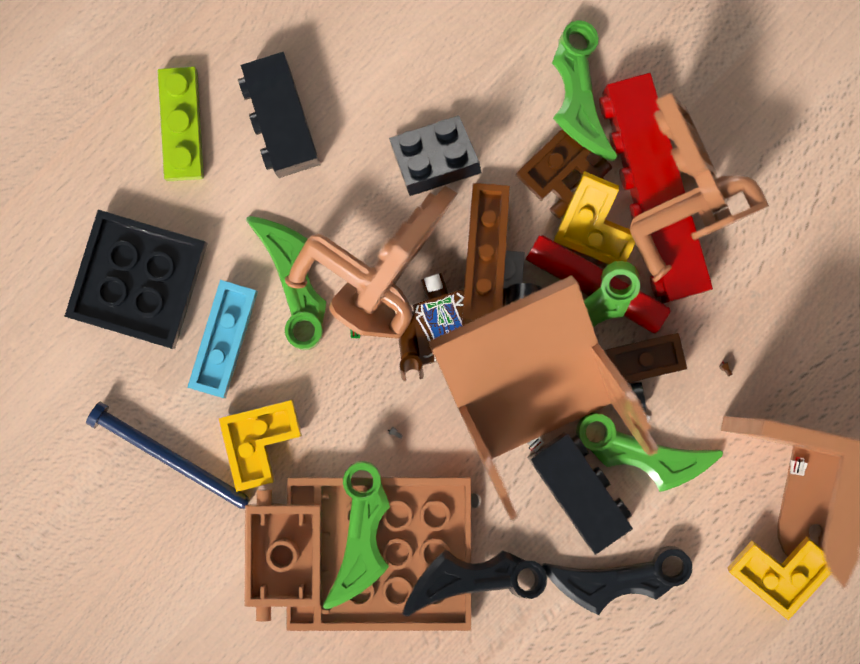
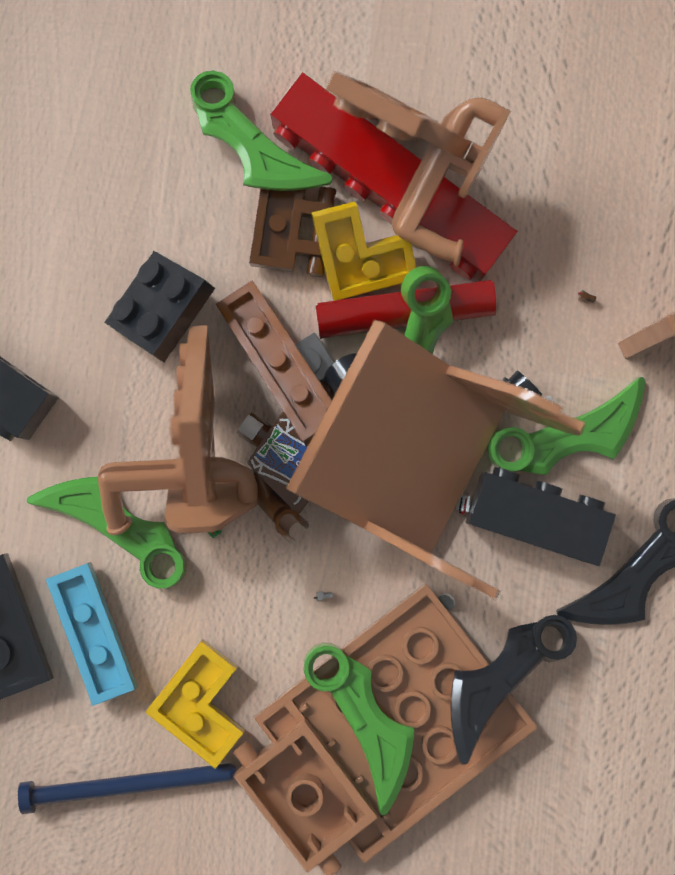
camera: 30 degrees left, 0 degrees up
(648, 358) = (506, 342): reddish brown plate -> none

